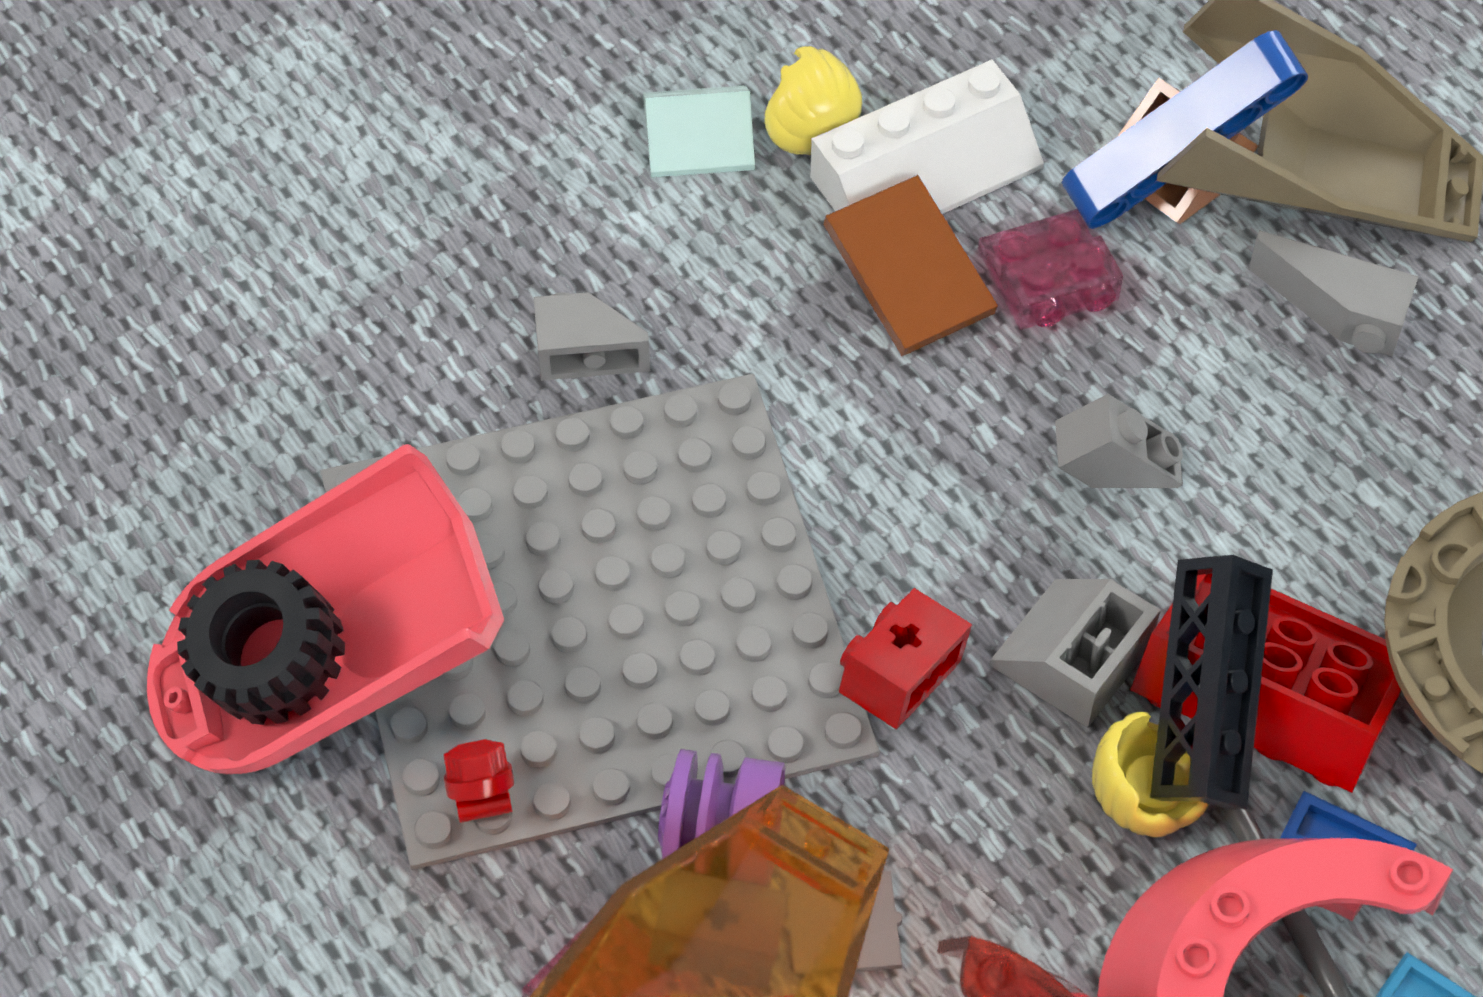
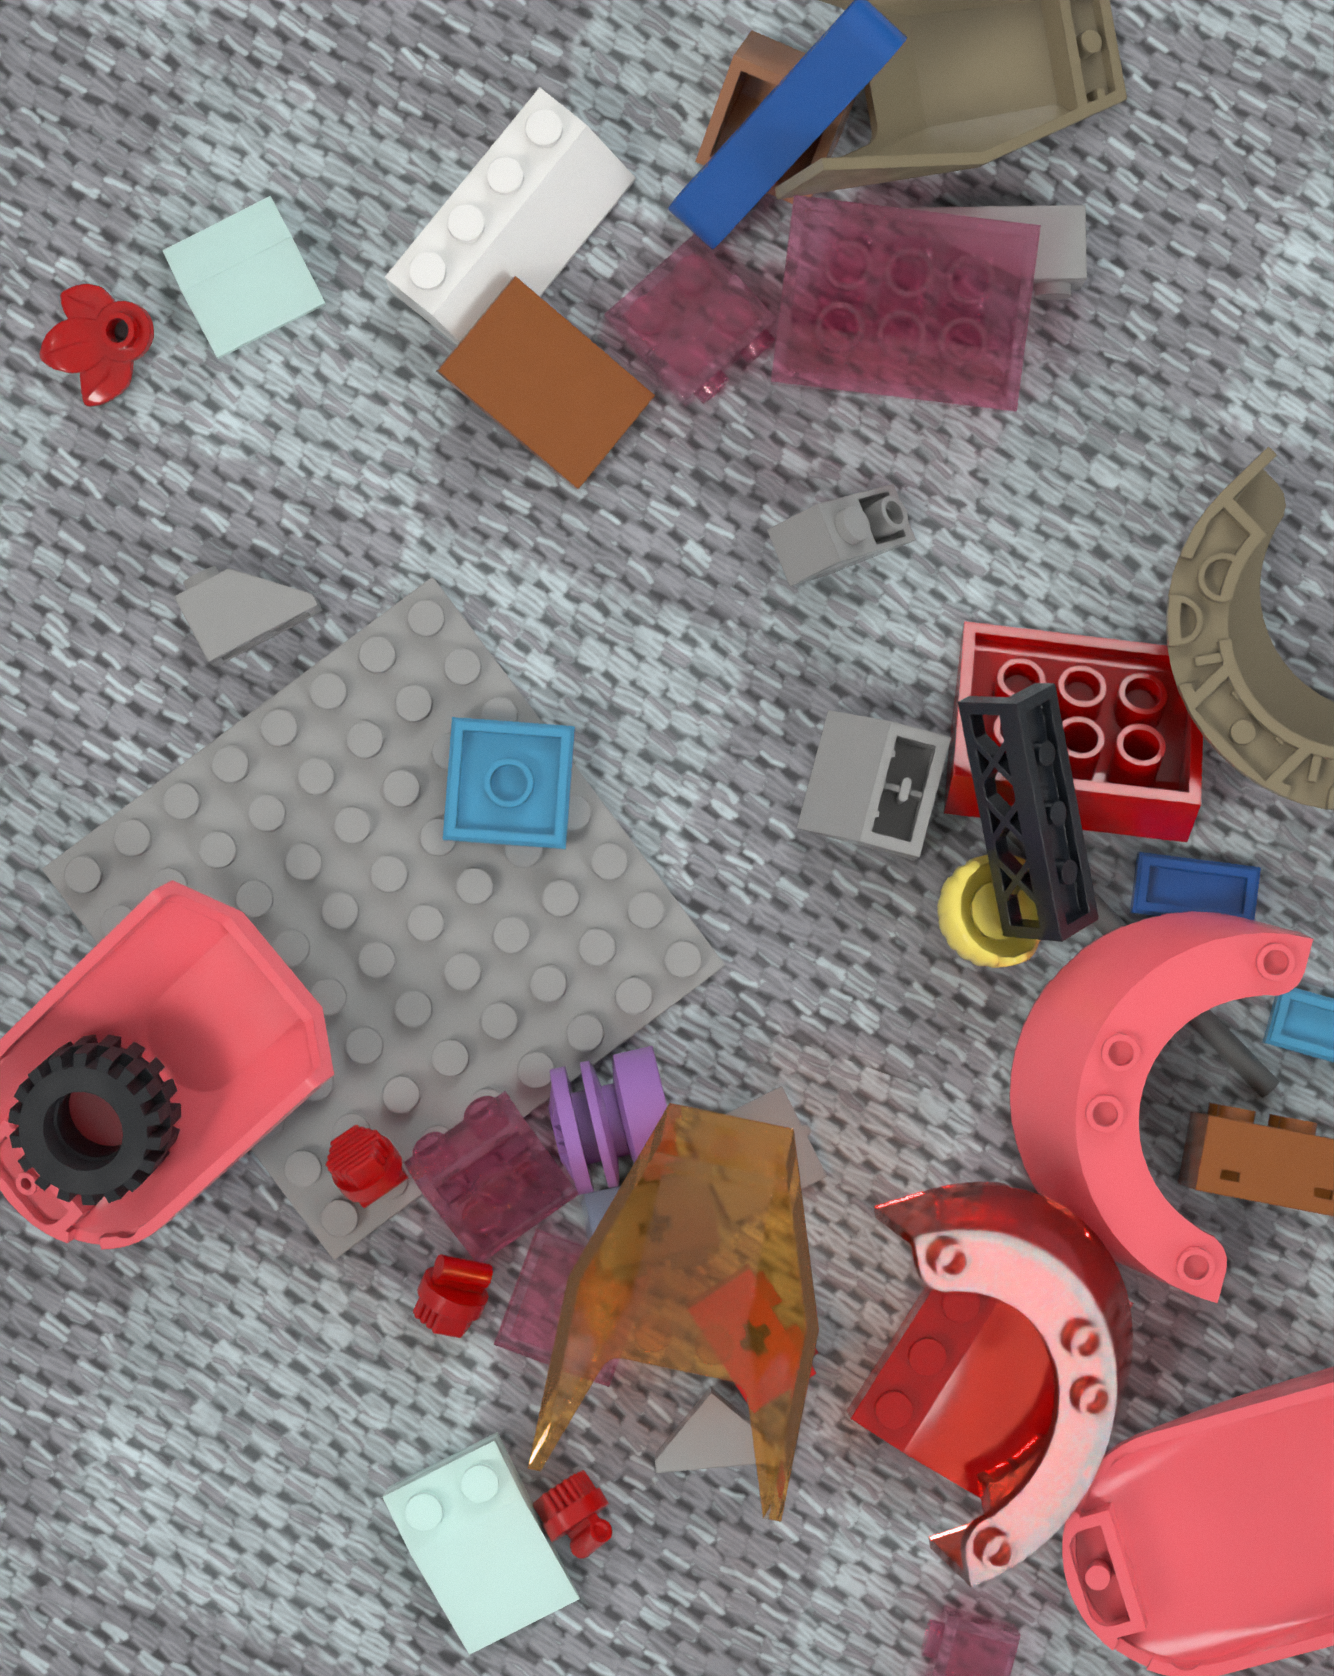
camera: 25 degrees left, 30 degrees up
(505, 927) = (452, 1295): none -> red piece
(563, 132) = (88, 342): none -> red plate
(584, 832) = (489, 1176): none -> clear pink plate
(749, 533) = (508, 783): none -> dark azure tile
(811, 100) = (367, 218): light yellow piece -> none
(903, 657) = (724, 833): red brick -> none
(1235, 296) = (905, 304): none -> clear pink slope

